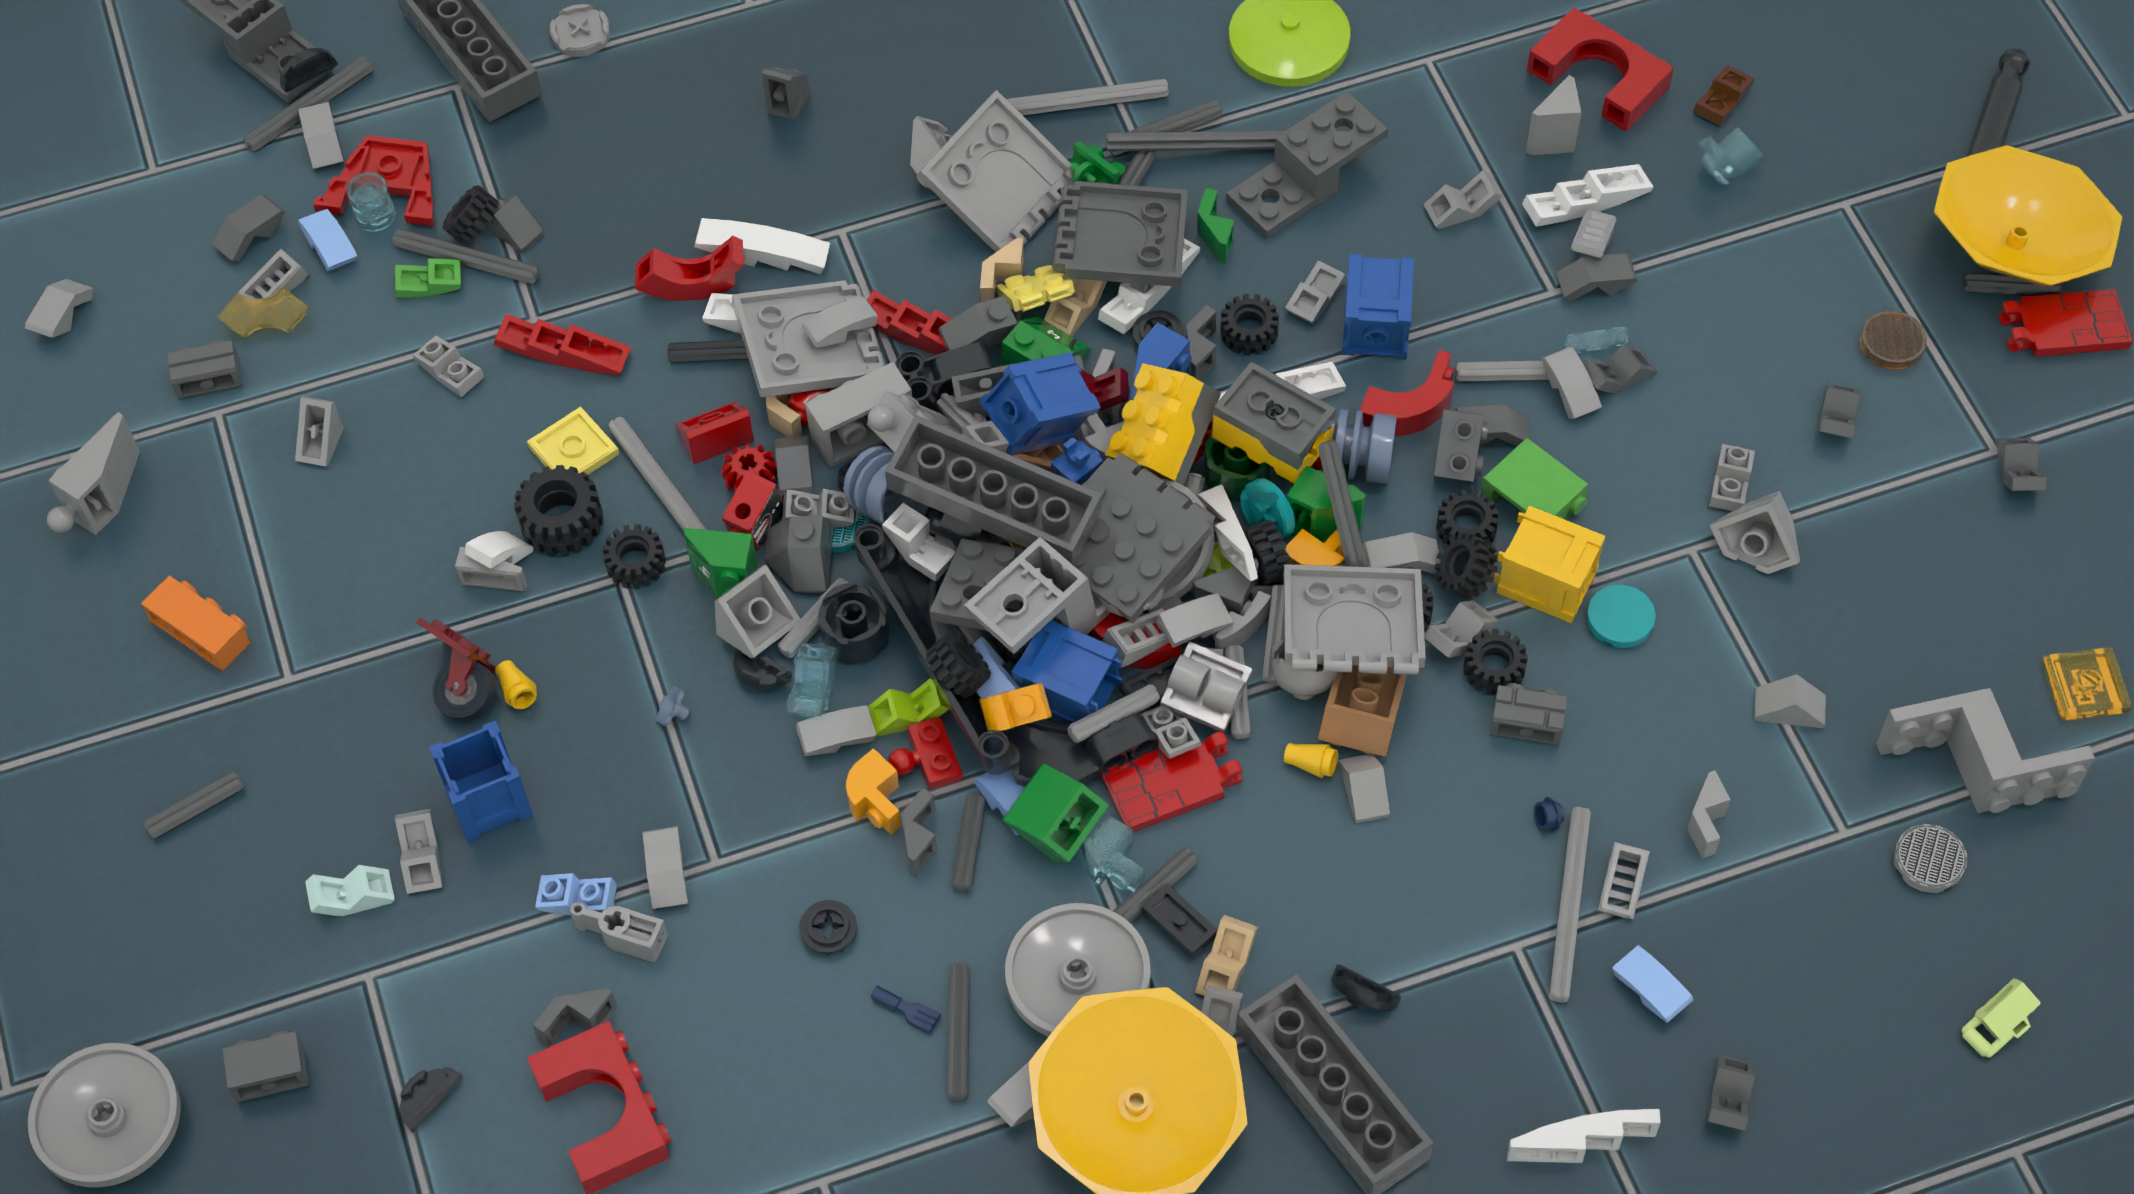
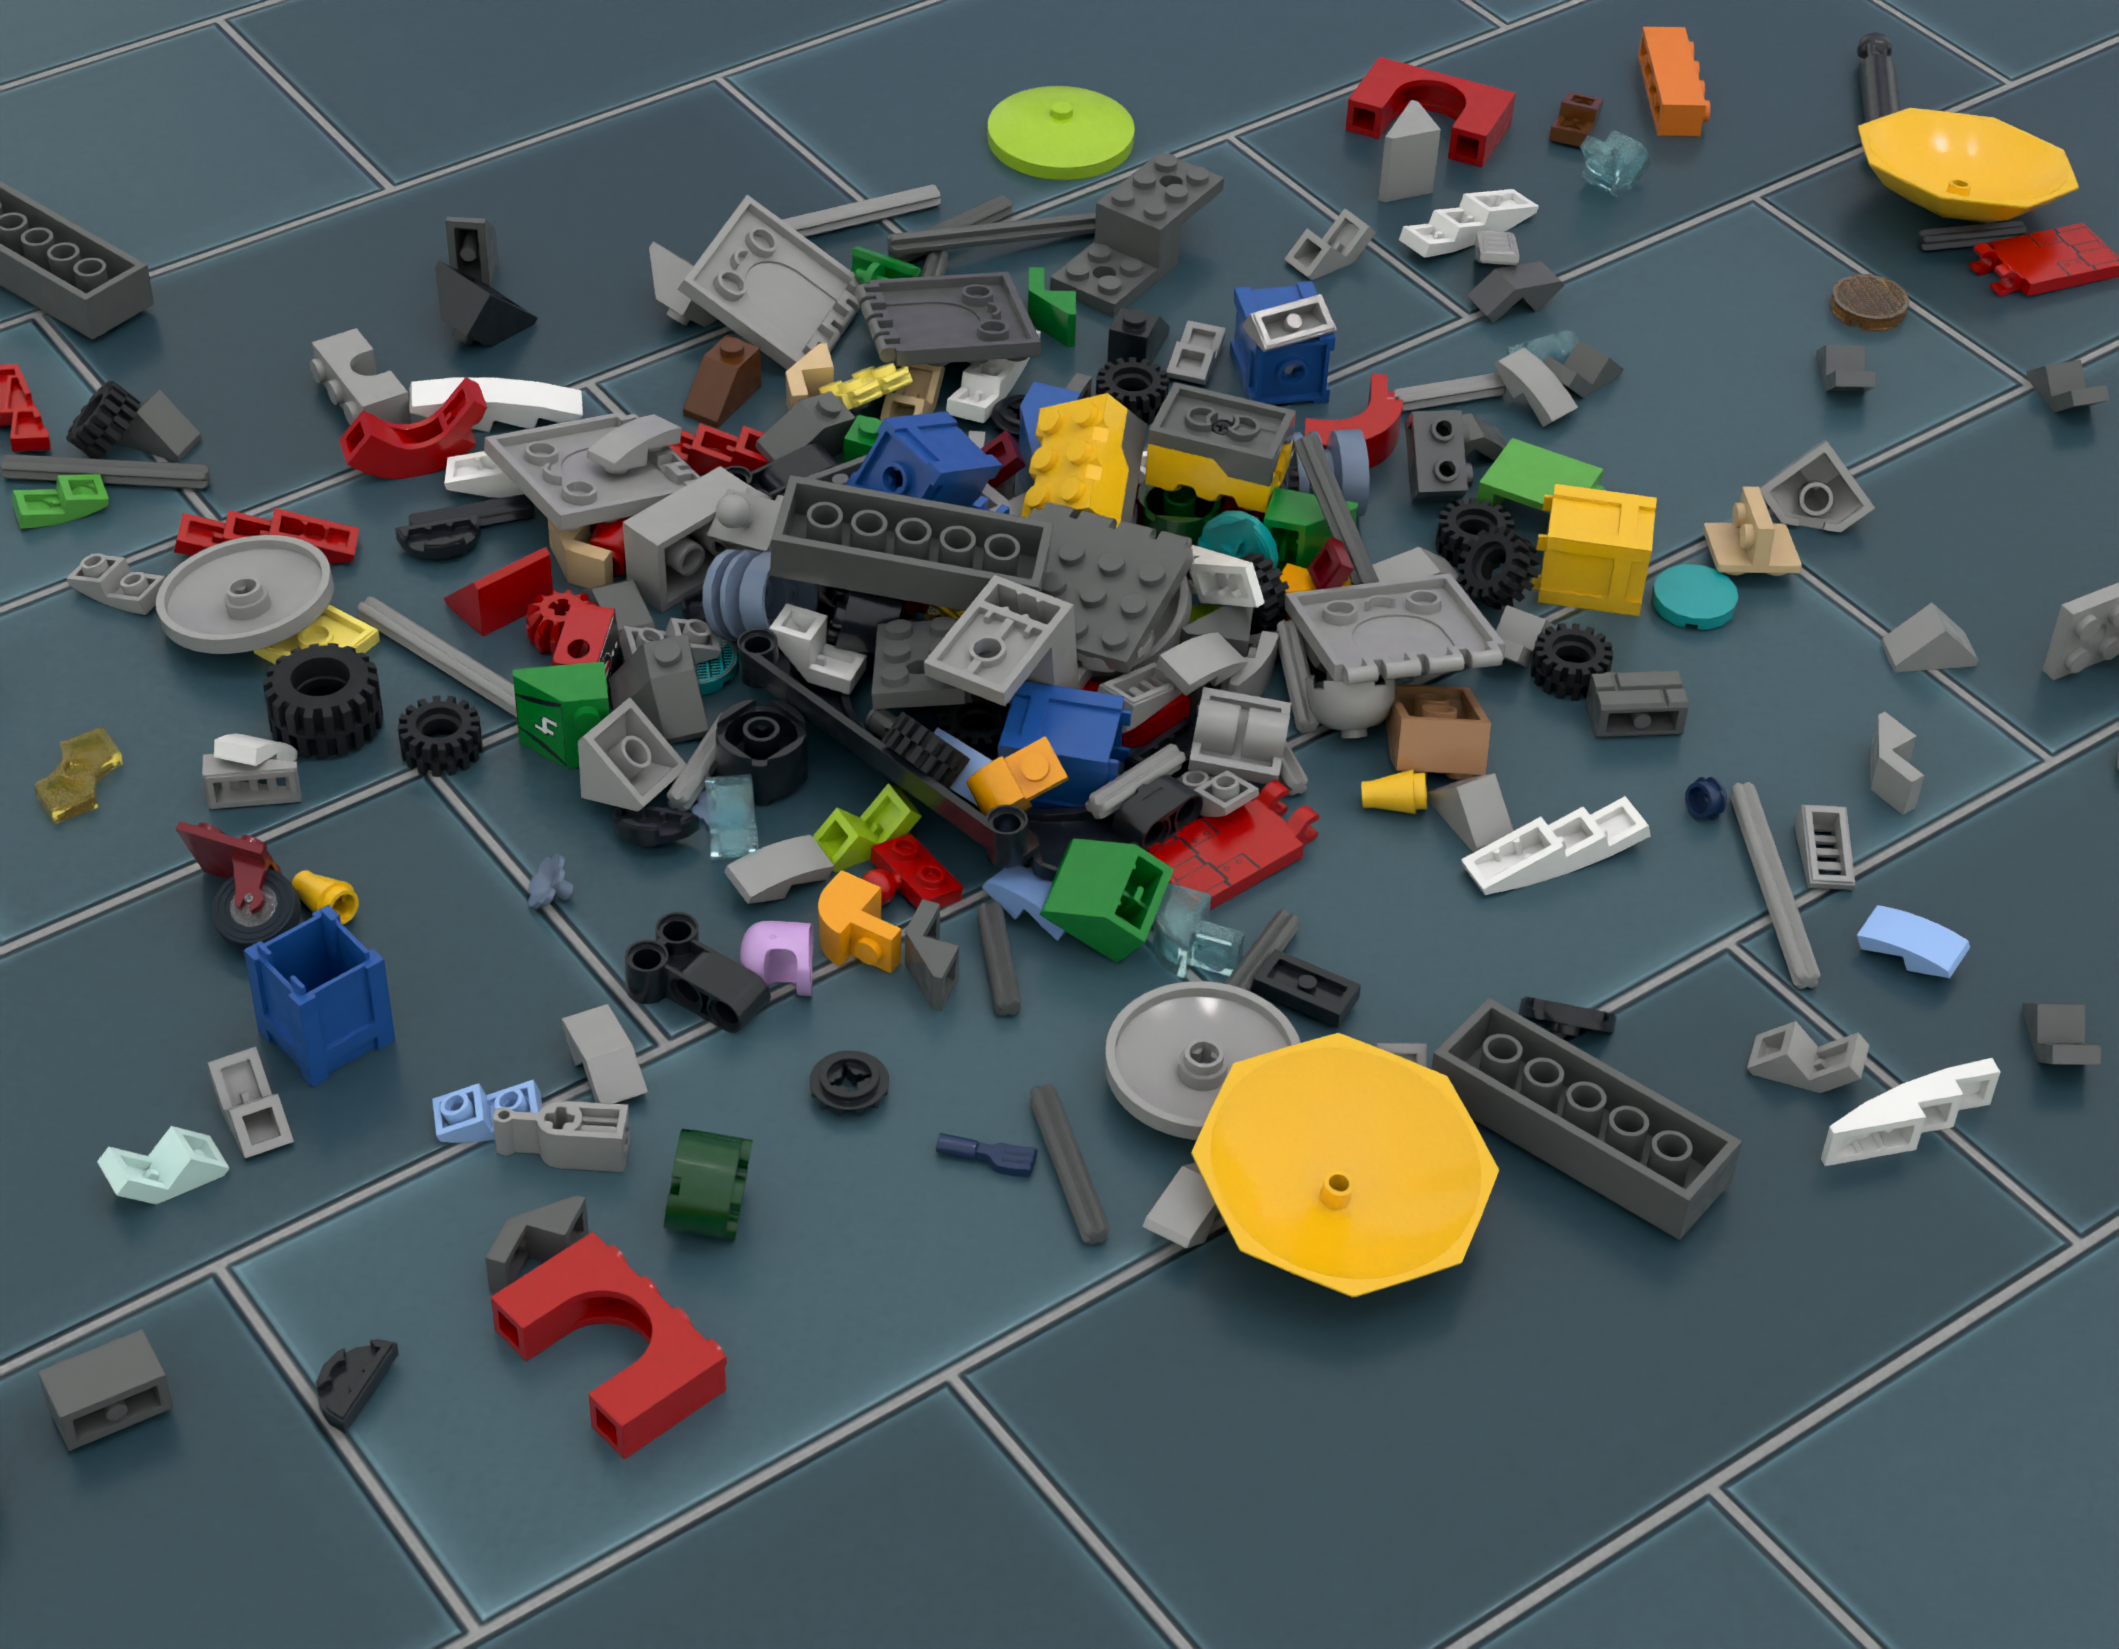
camera: 20 degrees left, 15 degrees down
(371, 546) = (73, 783): none -> clear yellow tile
(529, 401) = (245, 594): none -> light grey dish
(580, 30) = (182, 238): light grey tile -> none
(663, 187) = (349, 373): none -> light grey arch
(687, 369) = (440, 538): none -> black plate
(696, 998) = (707, 1184): none -> dark green brick
(746, 811) = (693, 975): none -> black piece
(776, 146) = (478, 309): none -> black slope
(810, 806) = (780, 953): none -> lavender helmet
(937, 257) = (724, 381): none -> reddish brown slope
(1228, 956) = (1384, 1005): tan slope -> none
(1271, 271) = (1136, 336): none -> black slope
(1327, 546) = (1331, 565): none -> dark red tile
(1377, 304) = (1290, 323): none -> light grey slope
(1414, 836) = (1552, 850): none -> white slope
(1523, 1068) = (1795, 1059): none -> light grey slope
(1684, 576) = (1751, 540): none -> tan bracket
(1731, 477) = (1755, 448): light grey slope -> none
(1820, 70) = (1673, 81): none -> orange brick

